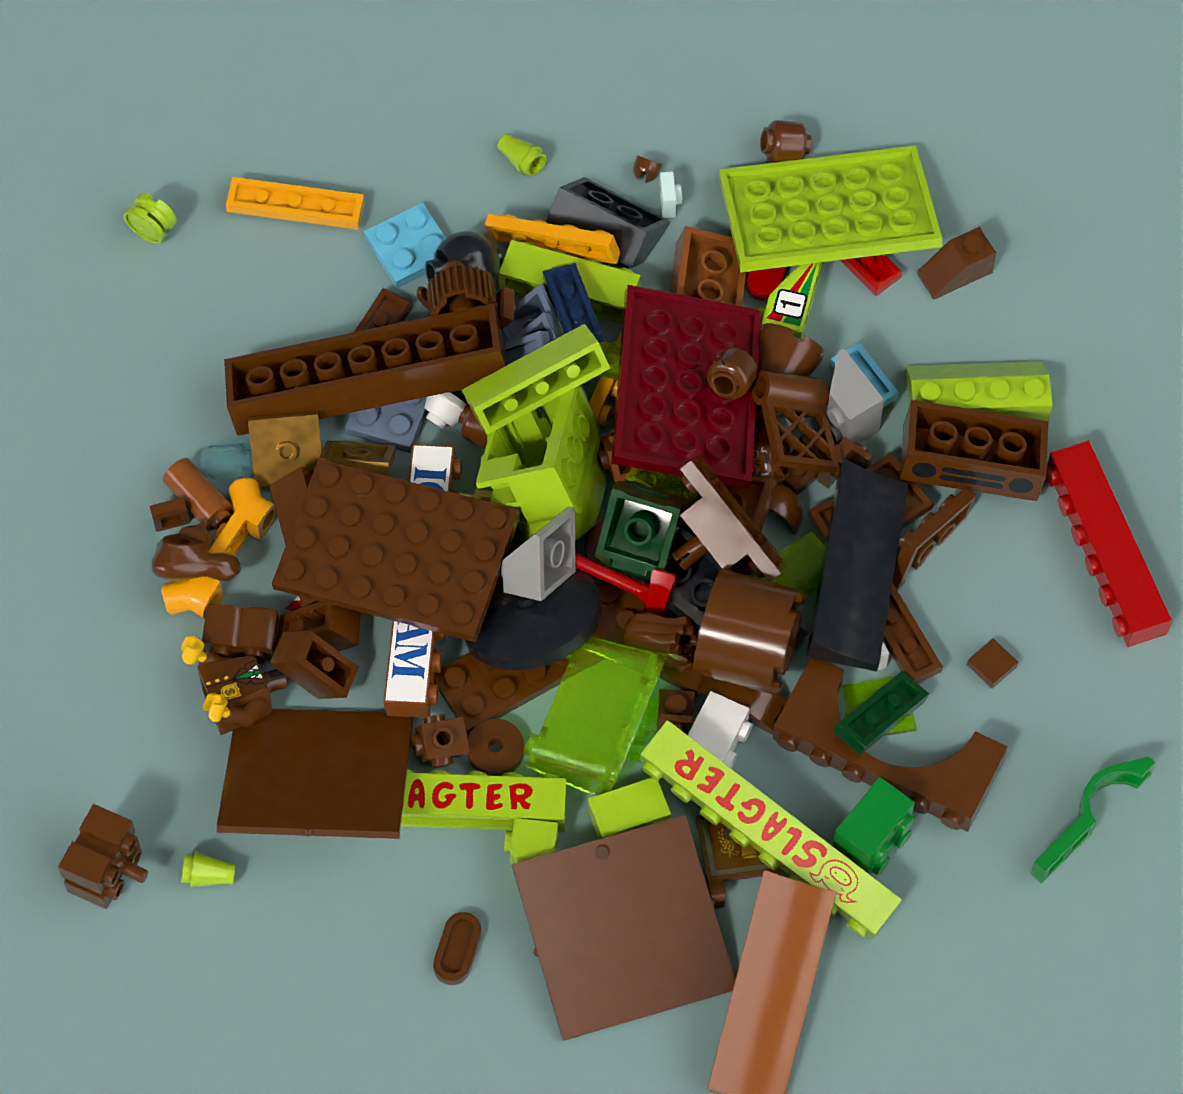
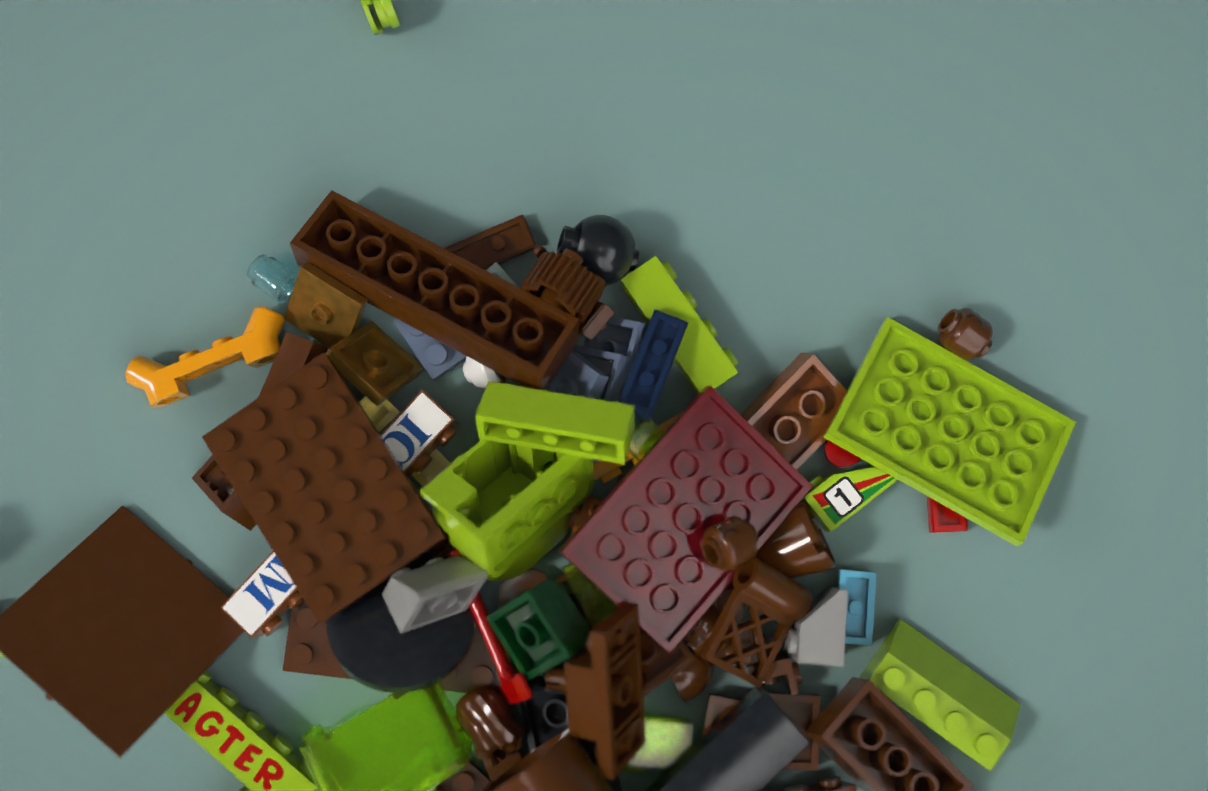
camera: 40 degrees right, 20 degrees up
(169, 514) = (193, 294): reddish brown tile -> none
(188, 557) = (162, 350): reddish brown head -> none
(199, 493) = (230, 293): dark orange brick -> none
(232, 687) = (119, 497): reddish brown torso -> none
(241, 631) = (169, 445): reddish brown brick -> none
(295, 203) = (510, 80): light orange plate -> none
(314, 664) = (193, 528): reddish brown brick -> none
(405, 243) = (575, 187): medium azure plate -> none
(451, 737) = (248, 669): reddish brown brick -> none
(495, 732) = (279, 704): reddish brown piece -> none
(523, 155) = (733, 175): lime cone -> none
(568, 238) = (685, 267): light orange plate -> none
(598, 208) = (754, 294): black slope -> none
(648, 166) = (829, 266): reddish brown hinge -> none
(669, 194) = (827, 309): light aqua plate -> none
(958, 263) = (1020, 562): reddish brown slope -> none

